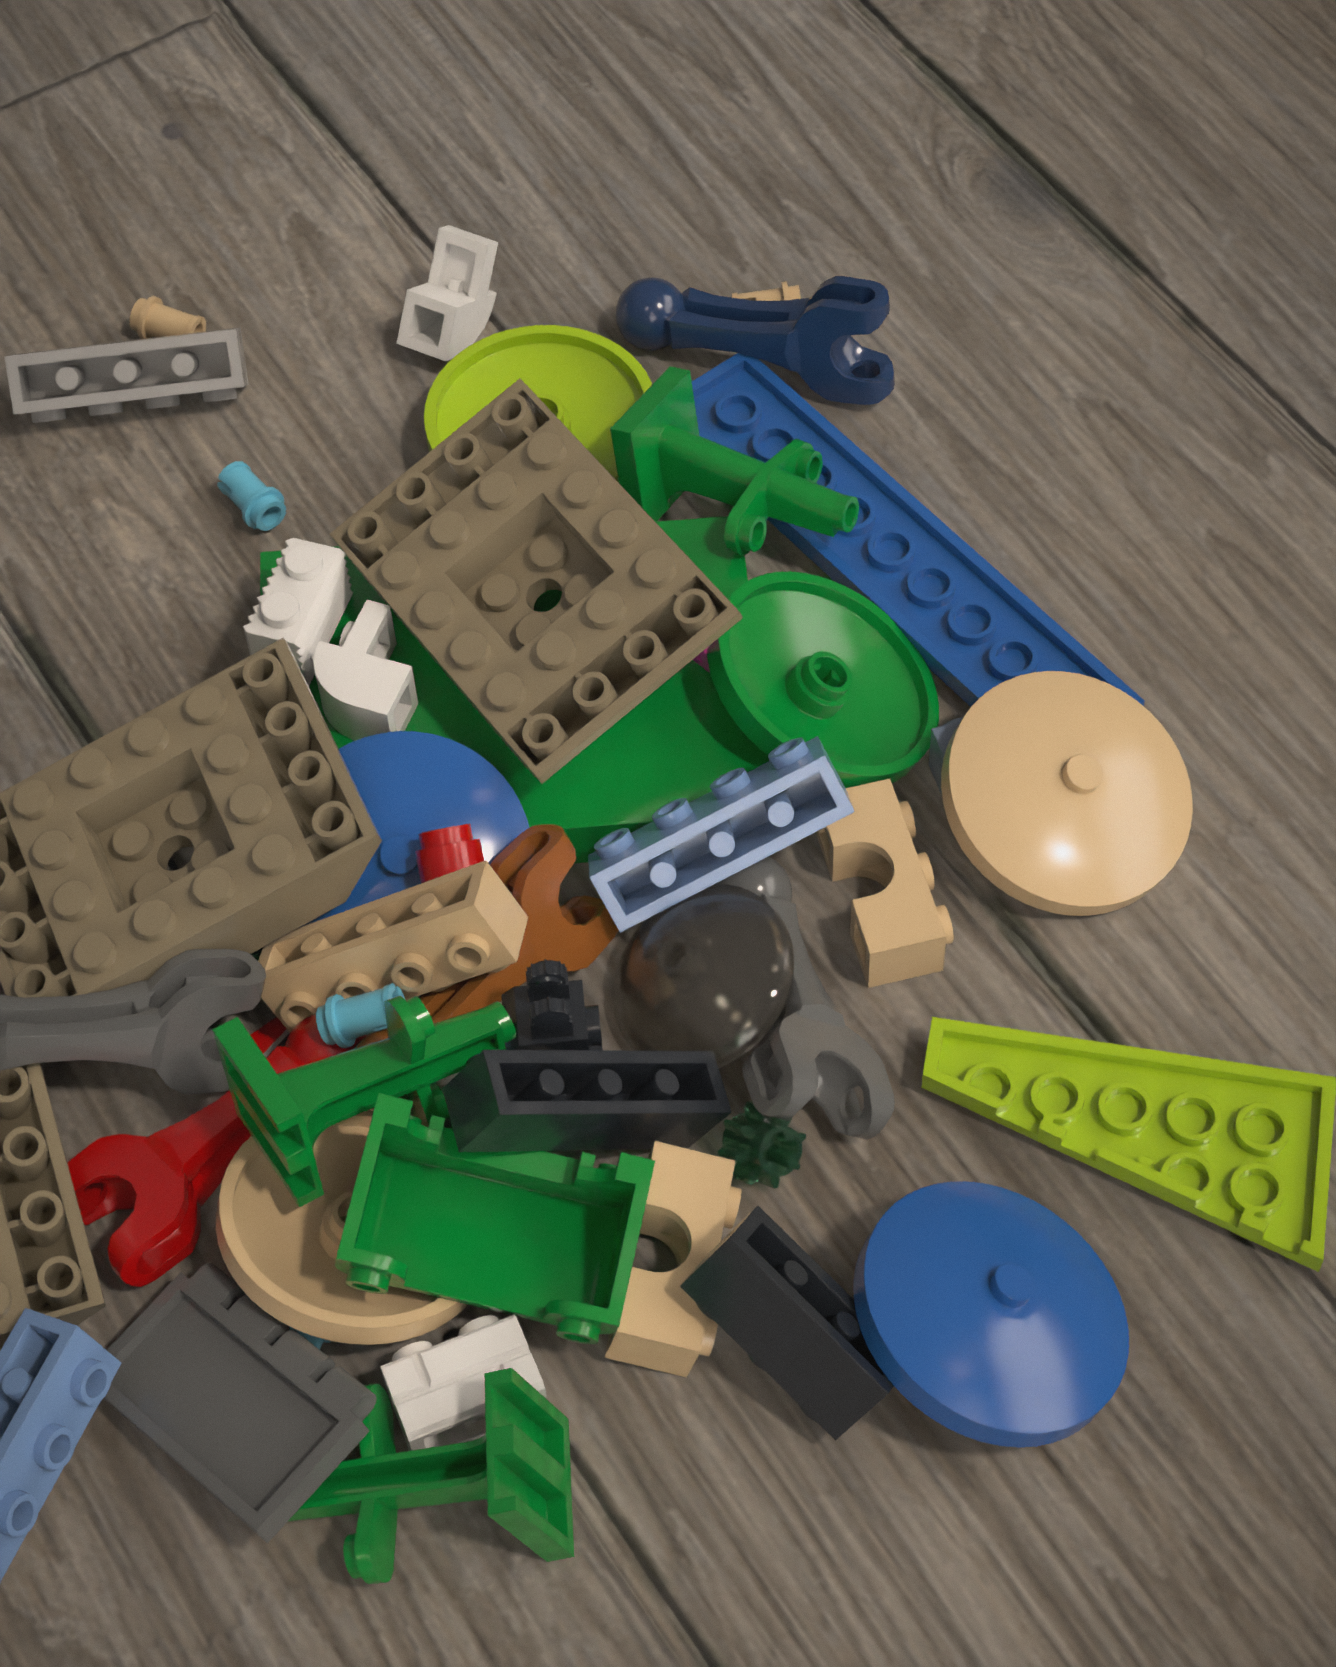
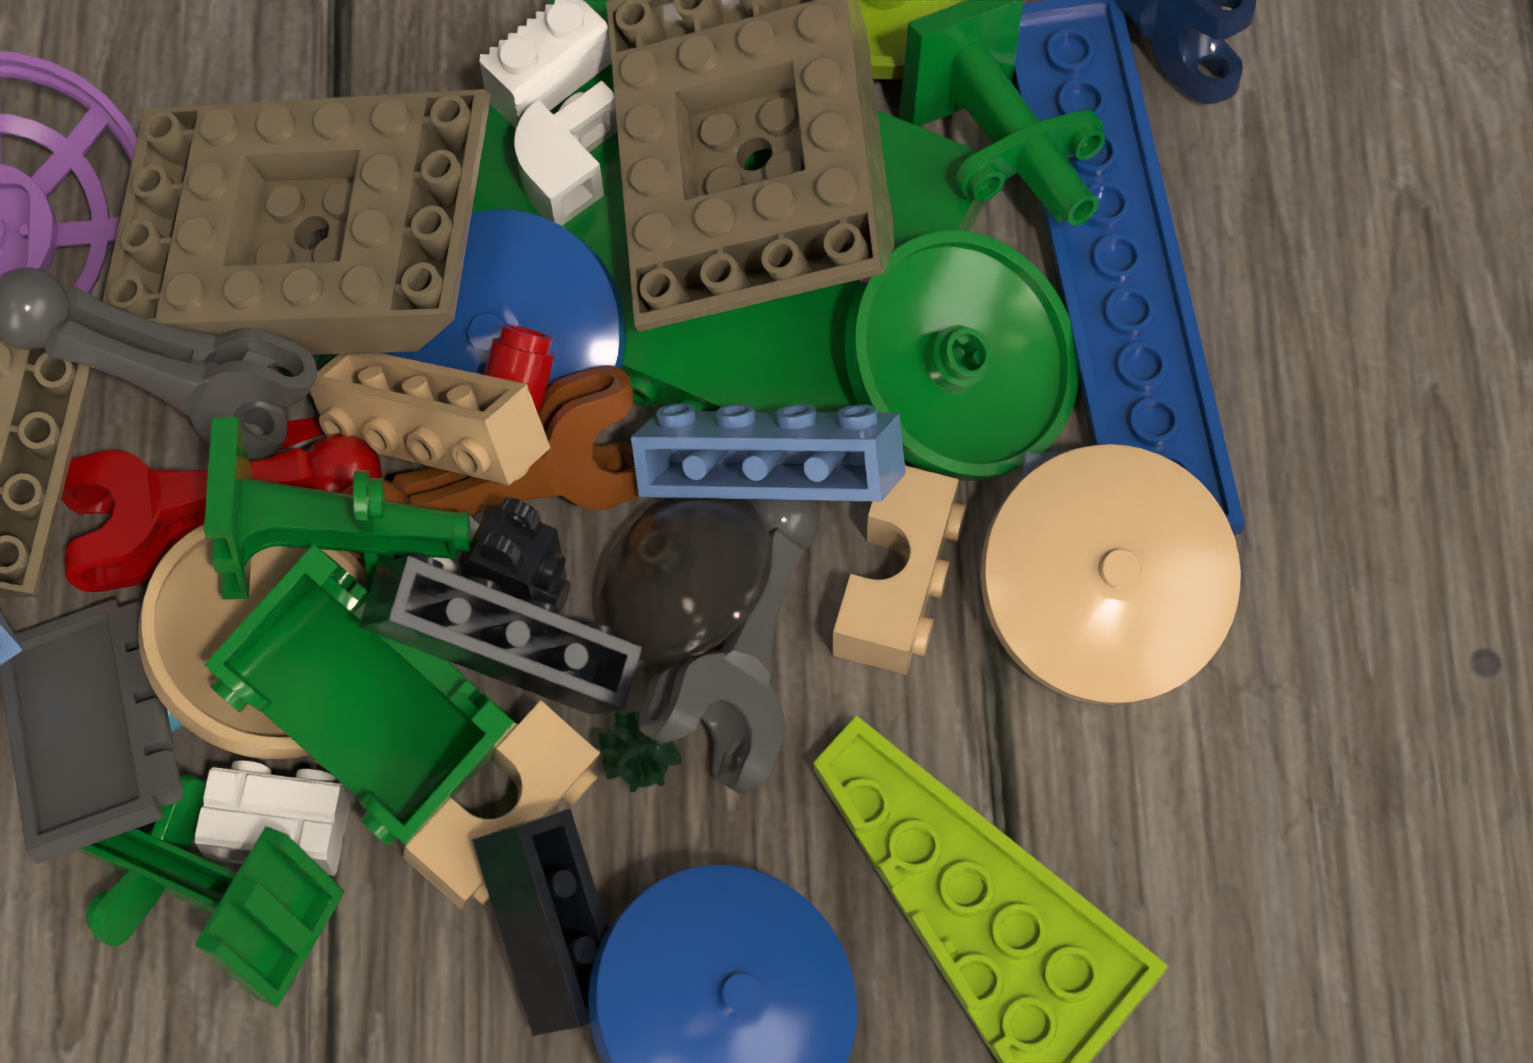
camera: 30 degrees right, 10 degrees up
(346, 1019) = (358, 452): medium azure pin -> none

